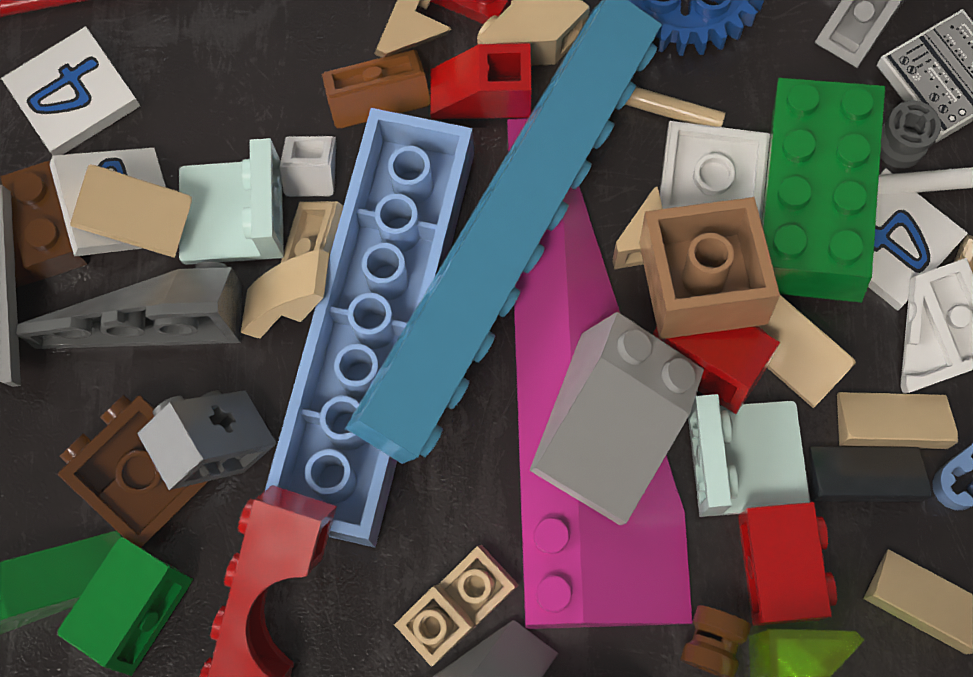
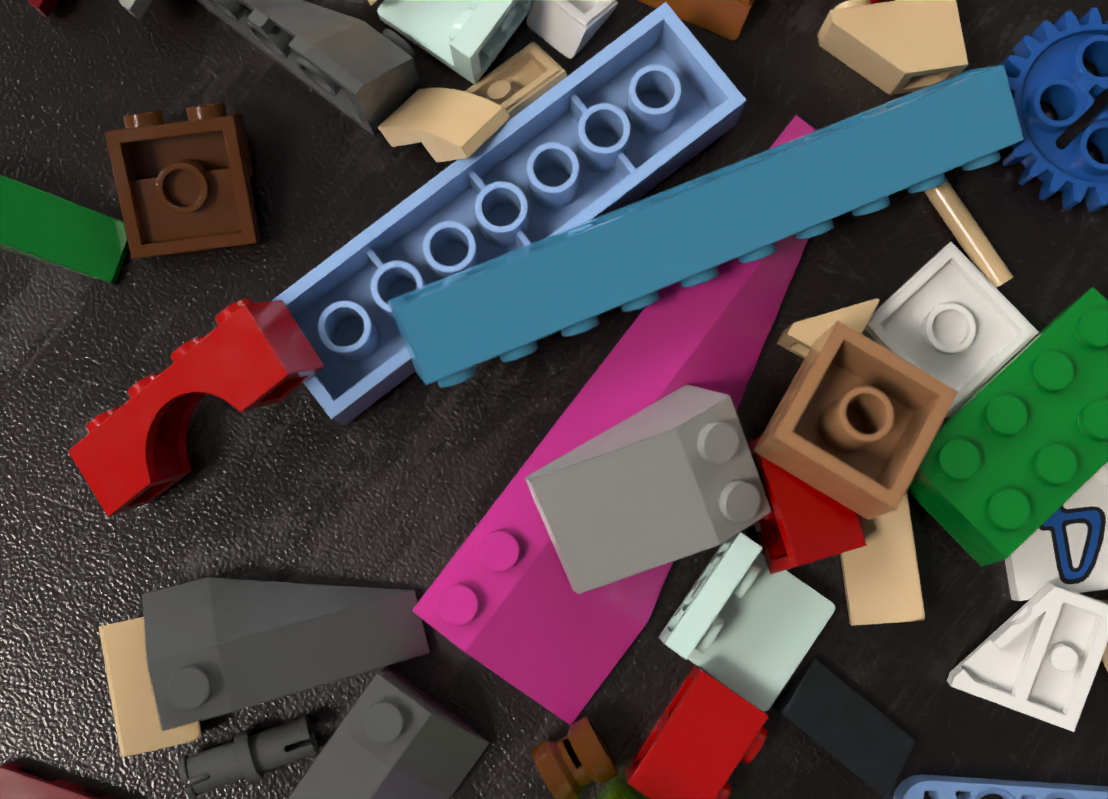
camera: 35 degrees right, 10 degrees up
(124, 607) = (80, 301): green panel -> none
(205, 437) = (262, 203): dark grey brick -> none
(456, 605) = (374, 536): tan slope -> none
(483, 83) = (800, 61): red slope -> none
(895, 420) = (917, 699): tan slope -> none

